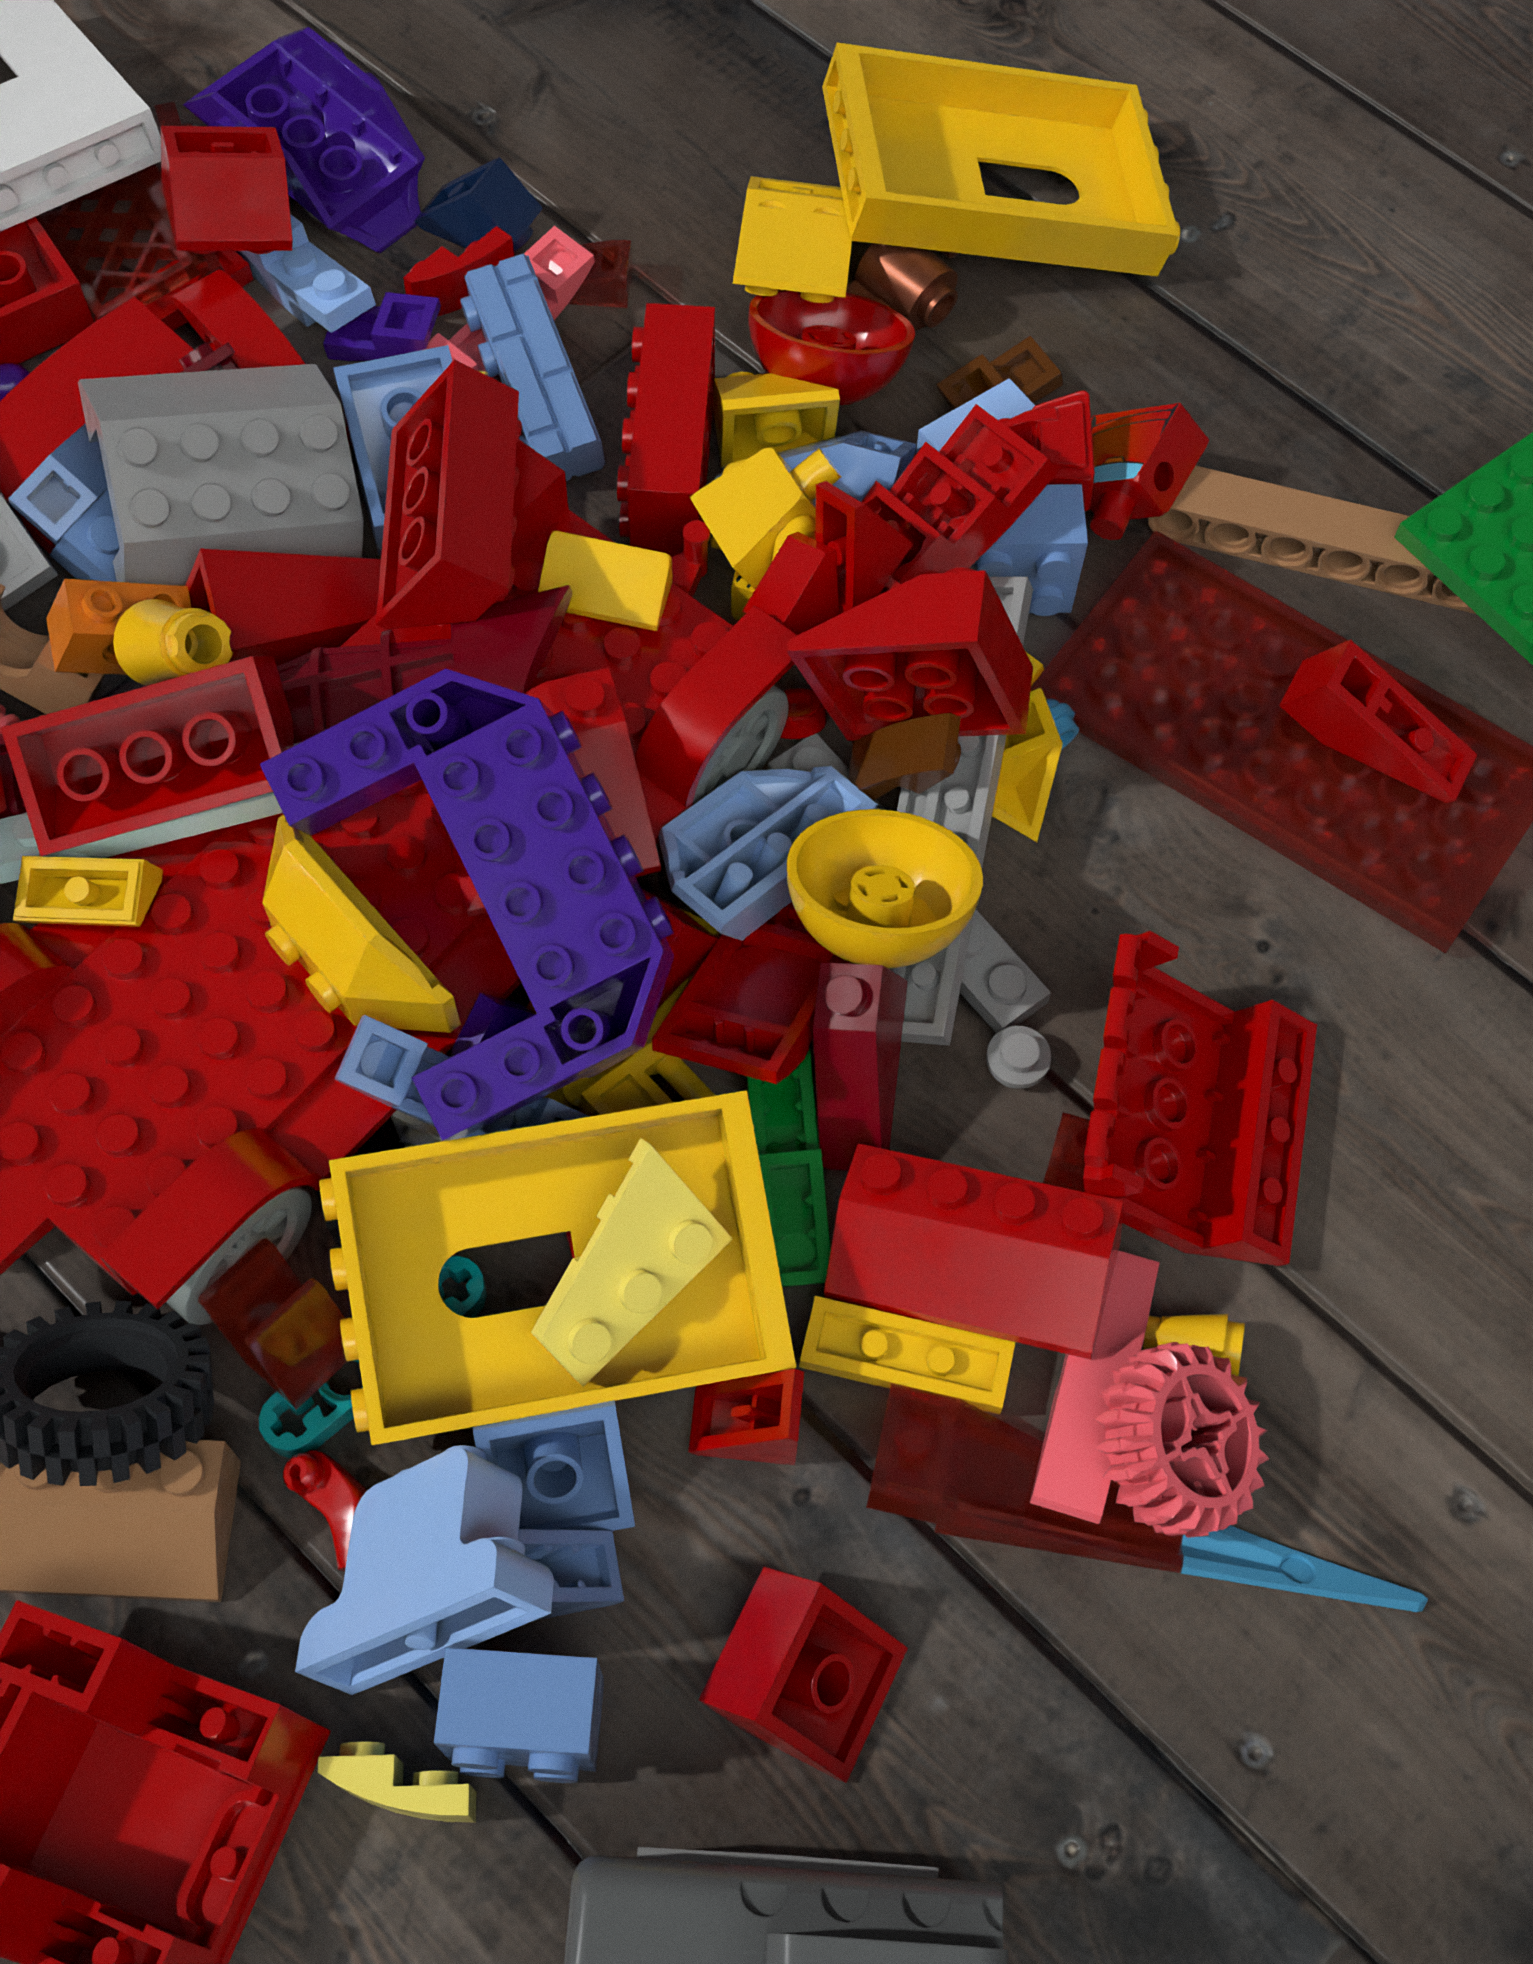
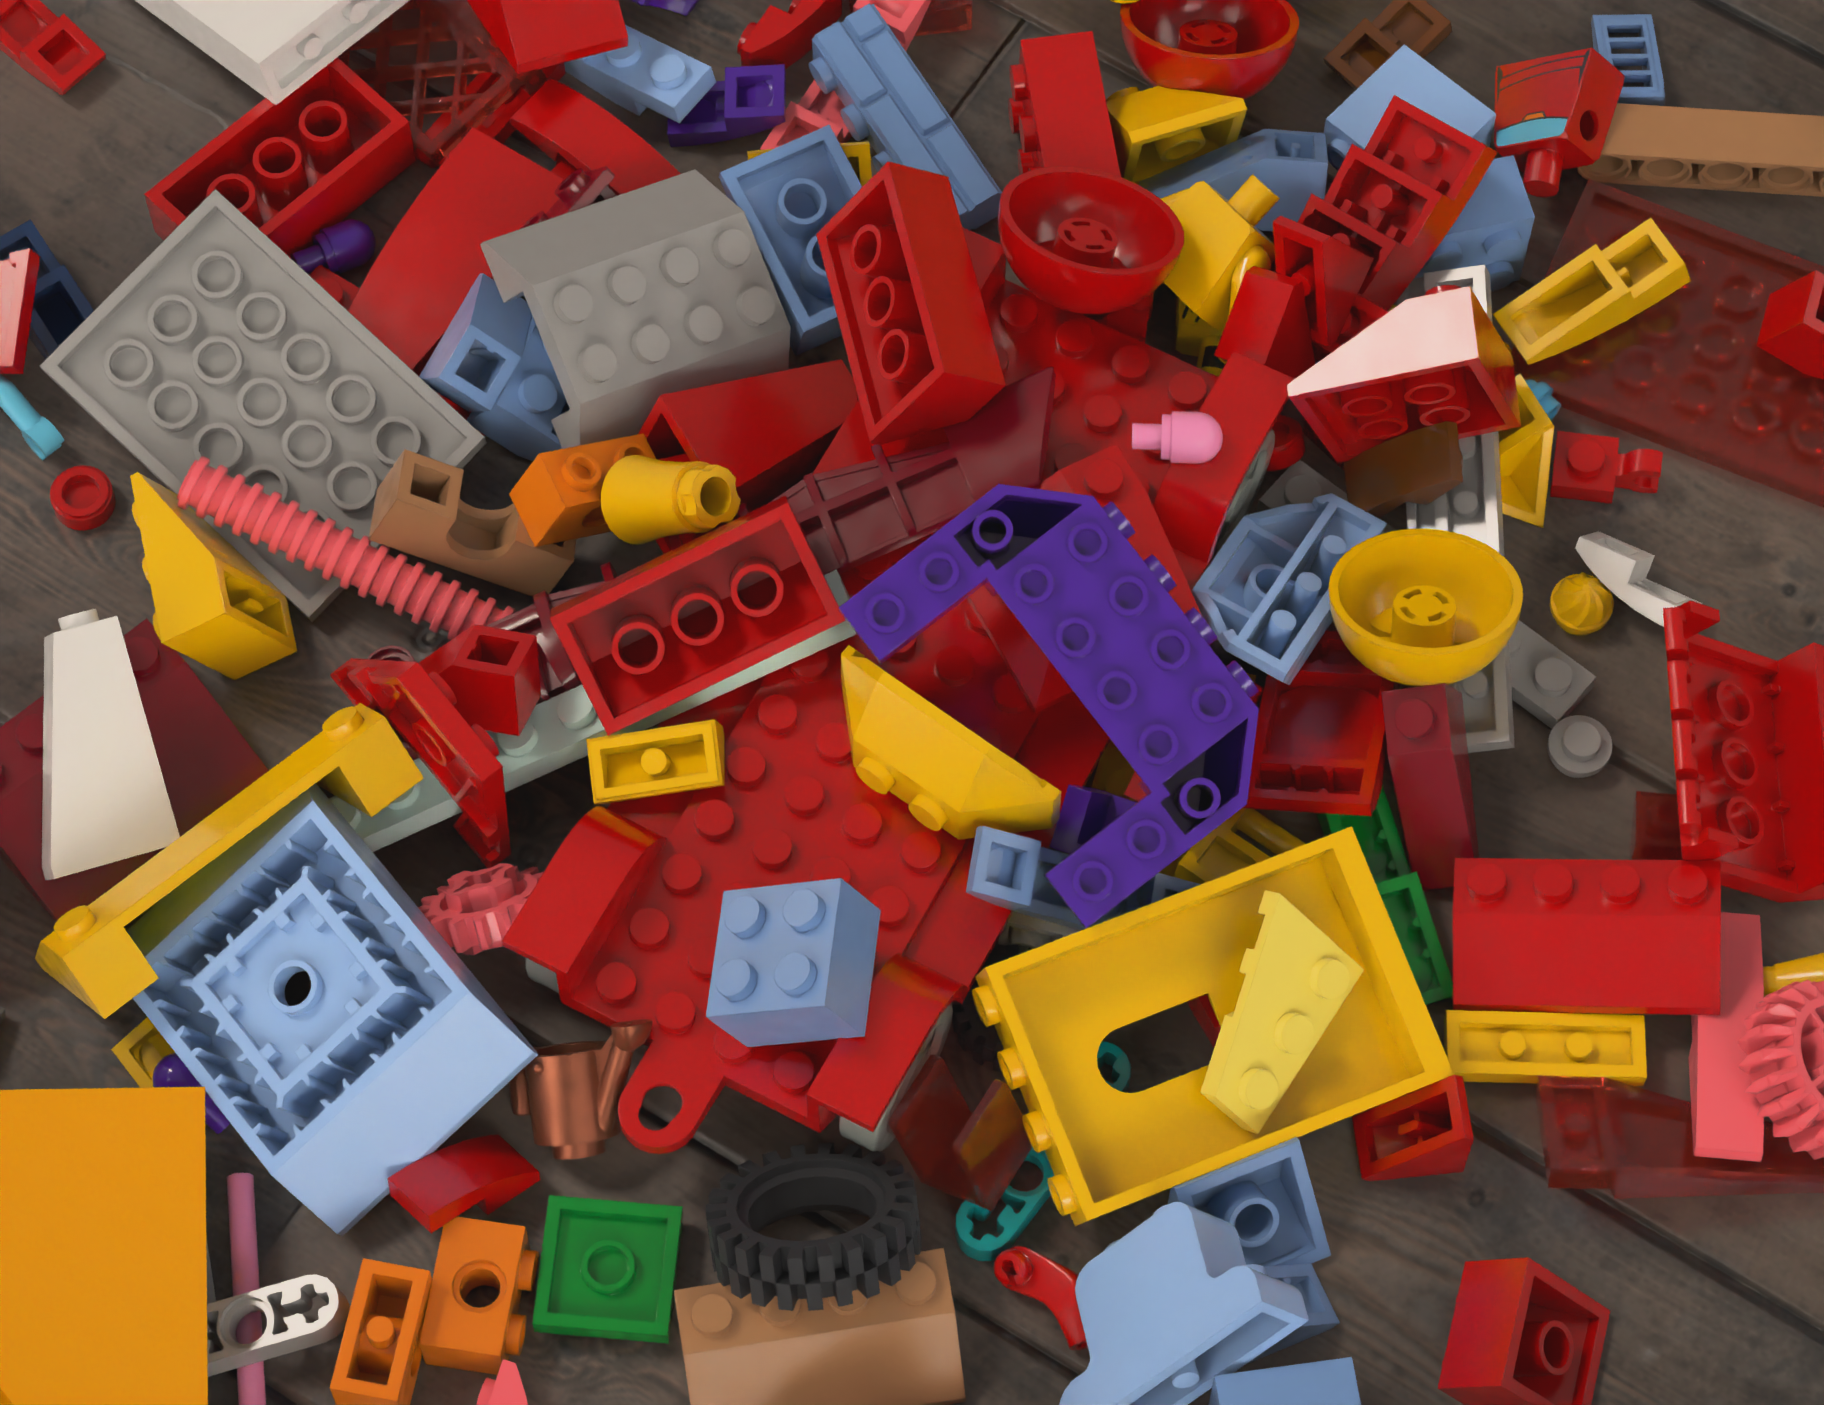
camera: 10 degrees left, 0 degrees up
(126, 1116) = (793, 963): none -> medium blue brick
(608, 579) = (1082, 348): yellow slope -> none
(640, 476) = (1087, 238): none -> red piece
(675, 674) = (1180, 437): none -> bright pink cylinder
(1054, 920) = (1581, 604): none -> yellow plate
(1064, 435) = (1478, 105): red piece -> none
(1097, 793) = (1590, 468): none -> red plate
(1102, 896) = (1625, 571): none -> white slope
(1133, 630) = (1593, 293): none -> yellow slope
(1238, 437) = (1651, 73): none -> medium blue slope

